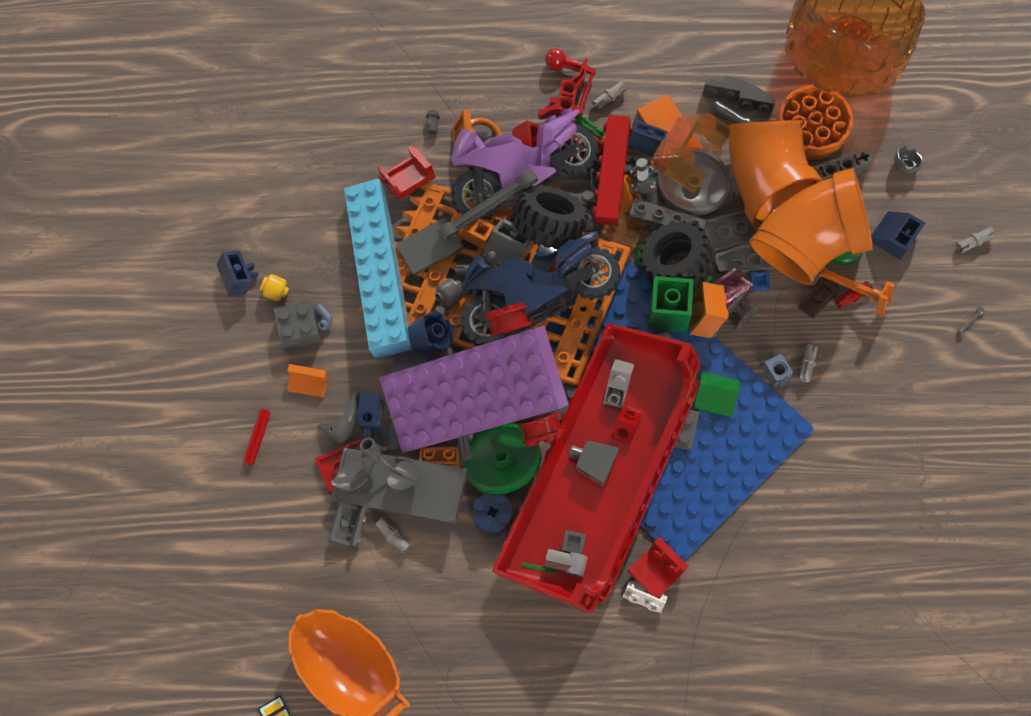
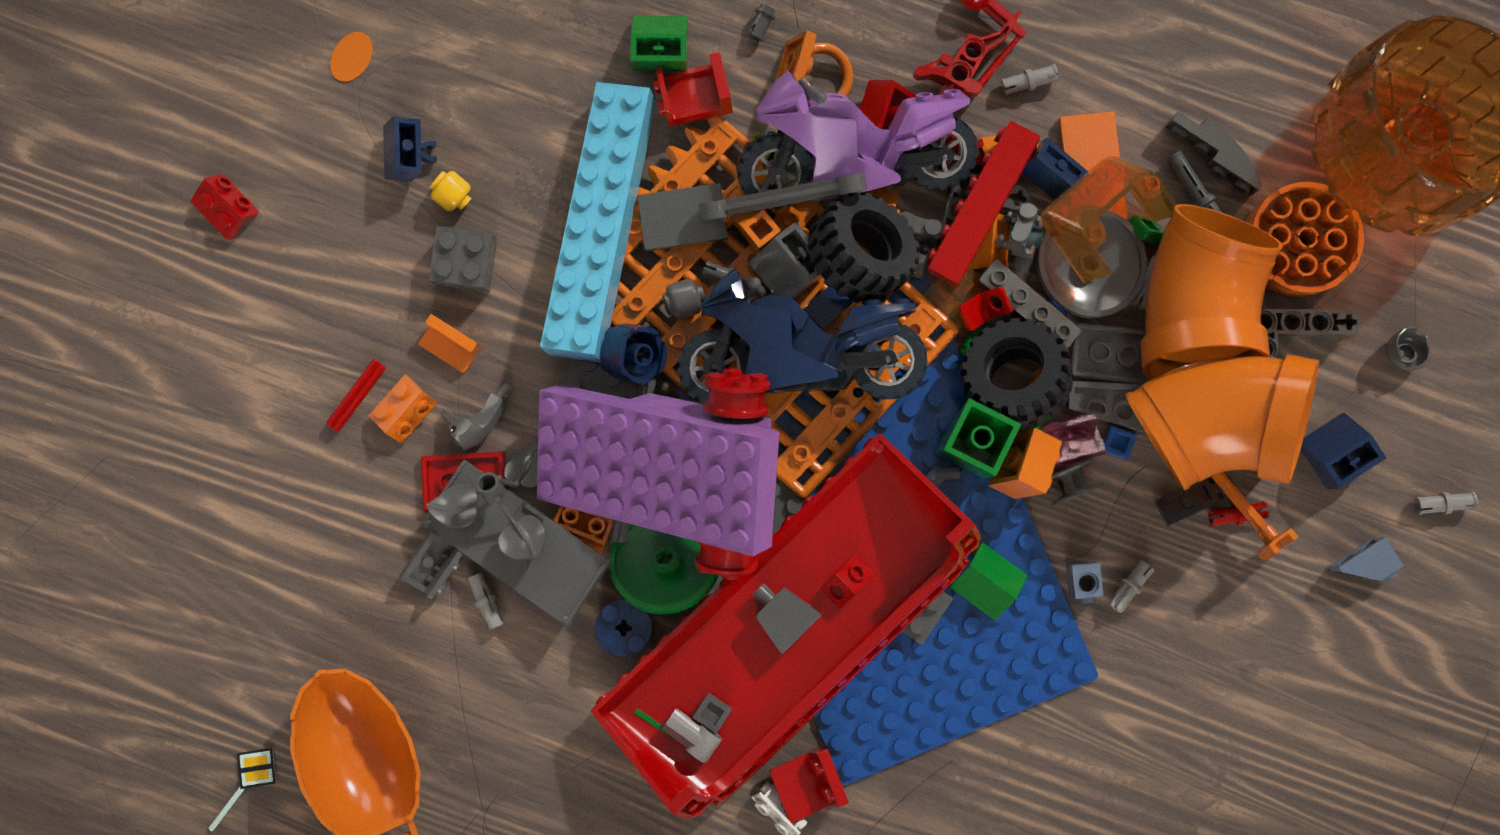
camera: 20 degrees right, 15 degrees up
(127, 351) = (223, 205): none -> red bracket
(180, 234) = (351, 56): none -> orange sticker
(291, 433) = (402, 409): none -> orange bracket
(326, 318) = (506, 261): sand blue arm -> none
(370, 407) = (518, 418): dark blue torso -> none
(374, 154) = (659, 42): none -> green slope
(581, 120) = (981, 120): green axle -> none
(618, 383) = (860, 522): light grey slope -> none
(638, 231) = (980, 308): none -> red bracket
(718, 150) = (1146, 228): none -> green tile
(948, 291) = (1370, 561): none -> sand blue slope
(980, 311) = (1400, 605): dark grey hinge -> none

